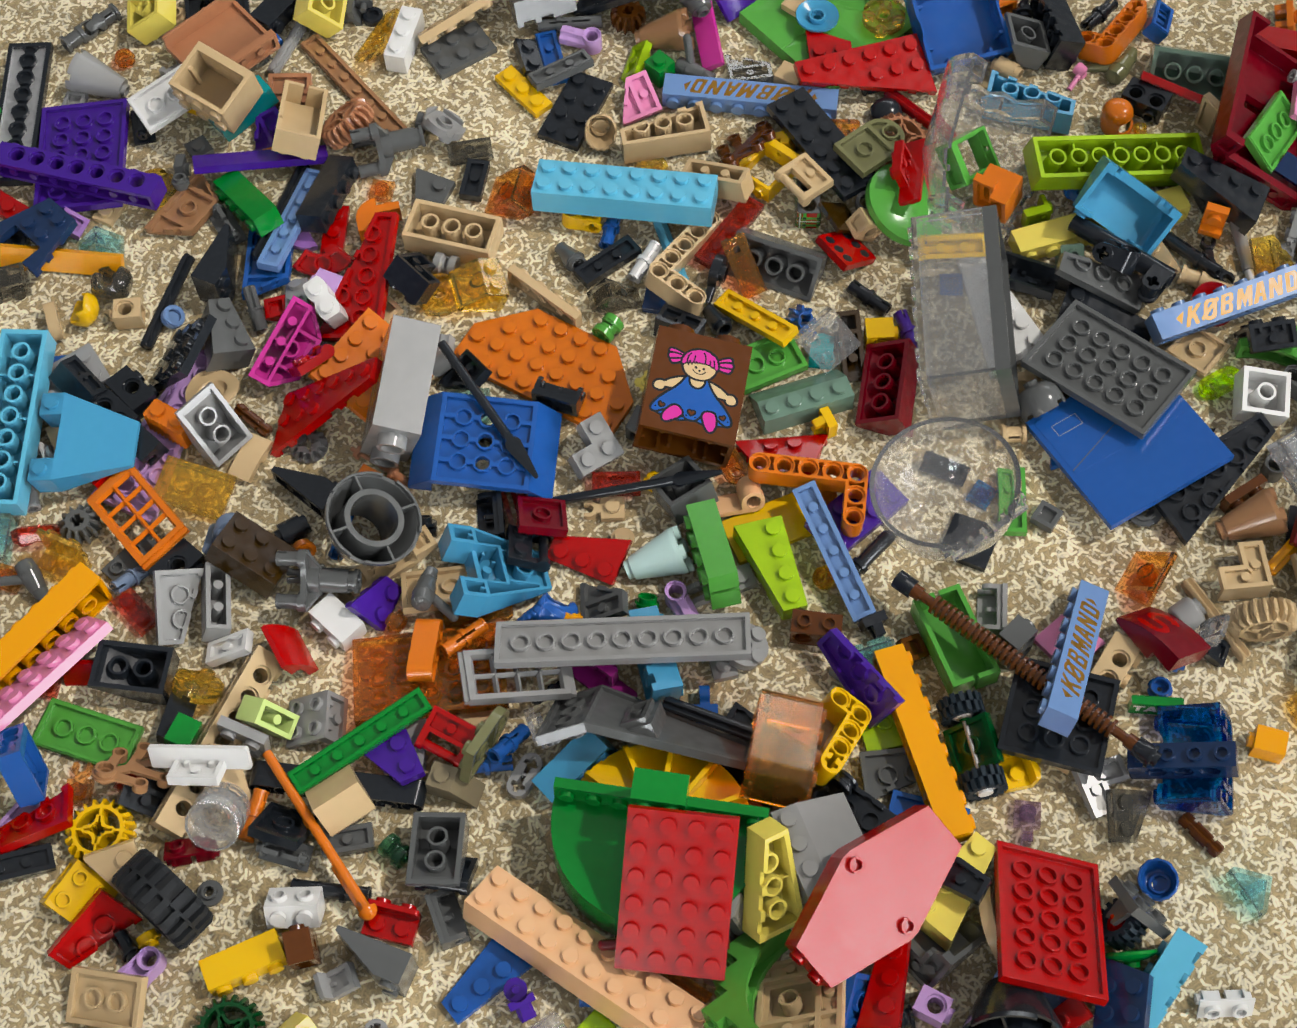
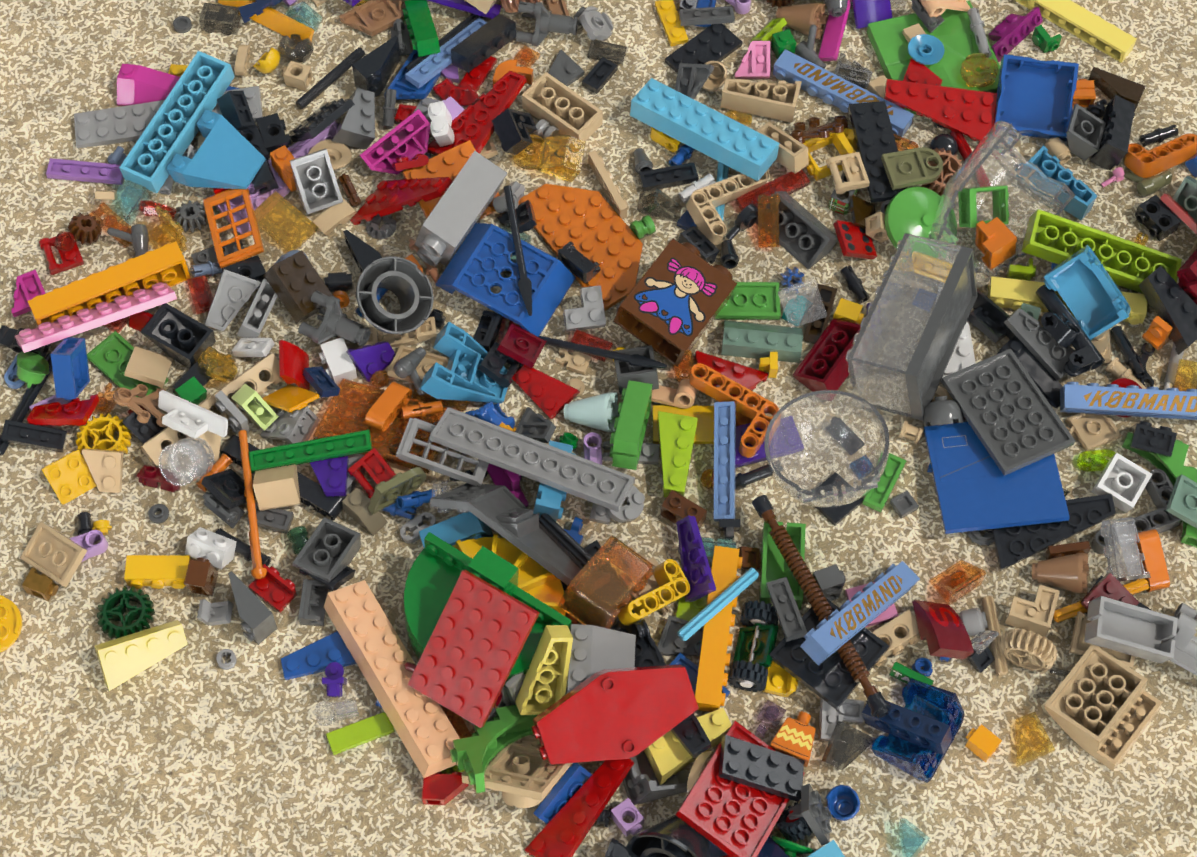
camera: 20 degrees right, 0 degrees up
(92, 928) = (67, 502): red wing -> none
(115, 723) = (148, 367): none -> tan tile
(162, 898) = (120, 500): black tyre -> none
(172, 317) = (328, 90): medium blue tile -> none
(304, 688) = (290, 398): none -> light orange container
(331, 654) = (321, 381): none -> dark blue plate
(512, 194) = (618, 98): clear orange slope -> none
(580, 142) = (692, 78): none -> dark grey wing
(756, 318) = (758, 264): yellow plate -> none
(908, 170) = (927, 197): red bracket -> none
(913, 716) = (718, 604): none -> medium azure axle
(991, 688) = (786, 609): none -> dark grey plate
(992, 607) = (825, 552): light grey hinge -> none
(1055, 882) = (761, 768): none -> plate
(1069, 831) = (795, 737): none -> orange torso
(1115, 114) = (1126, 219): orange helmet -> none
(1201, 834) = (895, 786): reddish brown axle -> none

